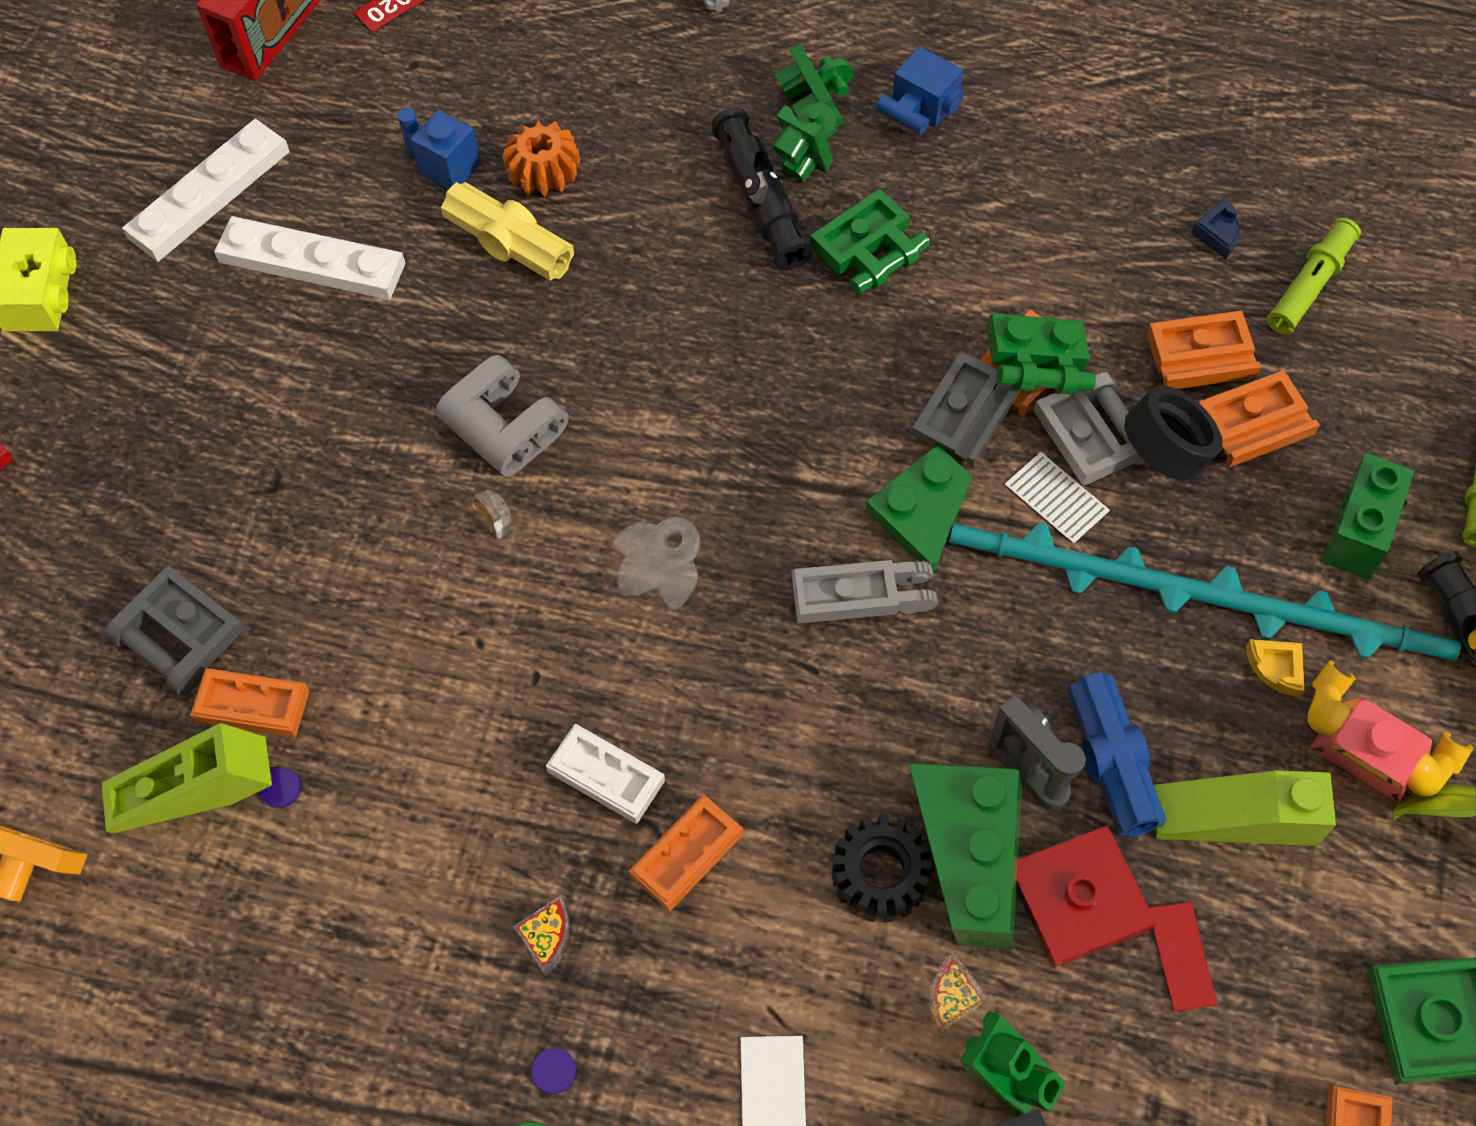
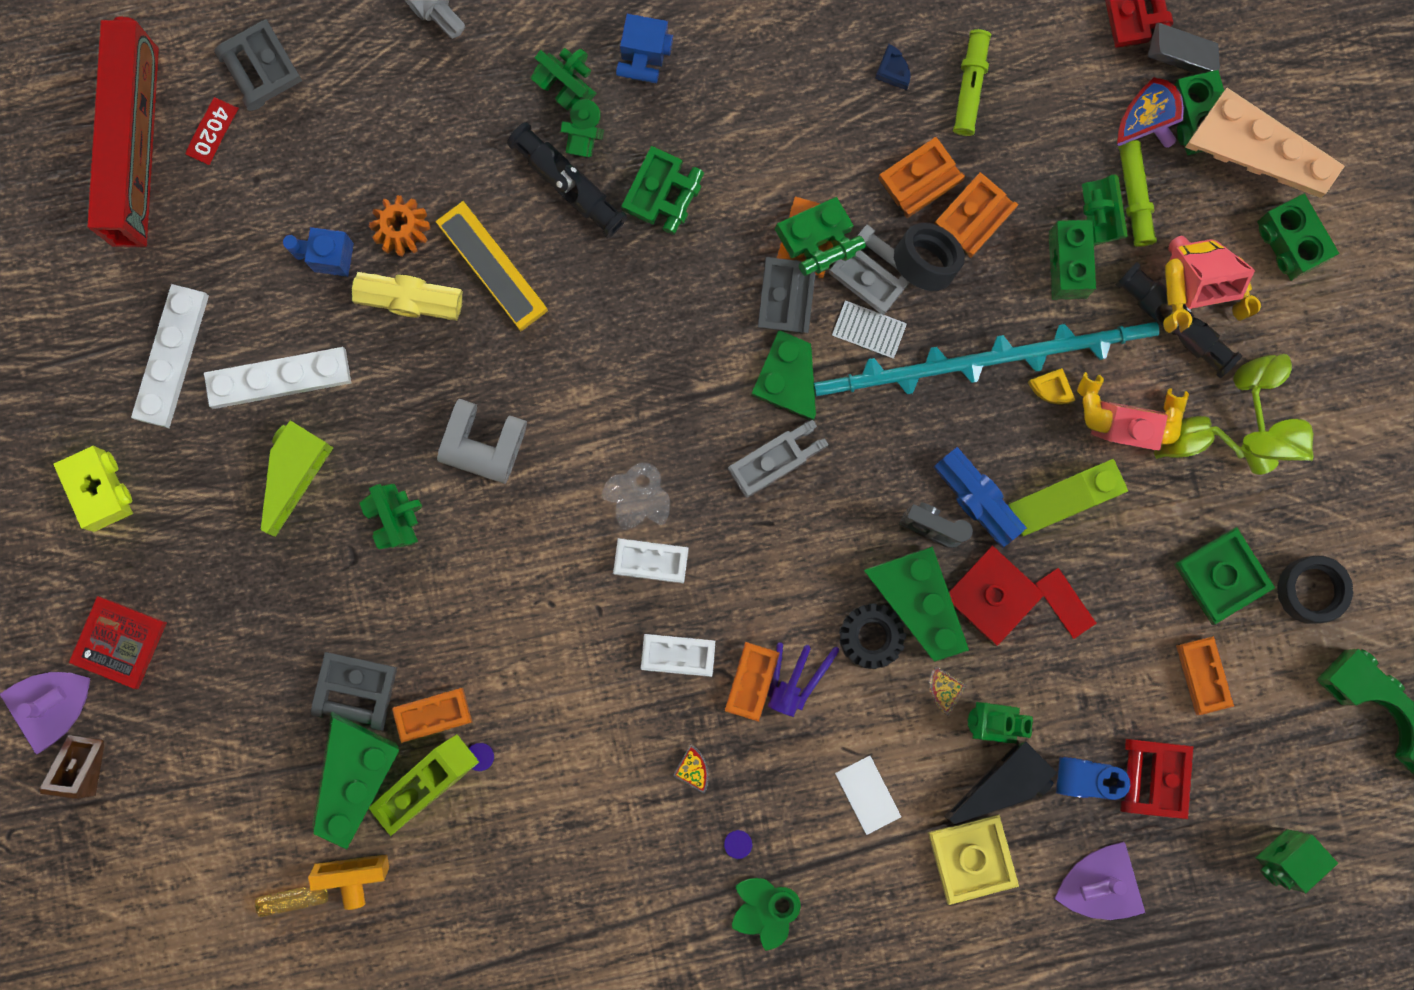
camera: 30 degrees left, 20 degrees up
(95, 725) = (350, 778): none -> green wedge
(257, 354) = (291, 468): none -> lime slope
(349, 449) = (395, 513): none -> green hips
(494, 511) = (512, 511): clear tile -> none
(624, 244) = (492, 266): none -> tile
(633, 641) = (650, 561): none -> white plate
(722, 891) = (786, 696): none -> dark purple plant
(1437, 476) = (1105, 208): none -> green hips

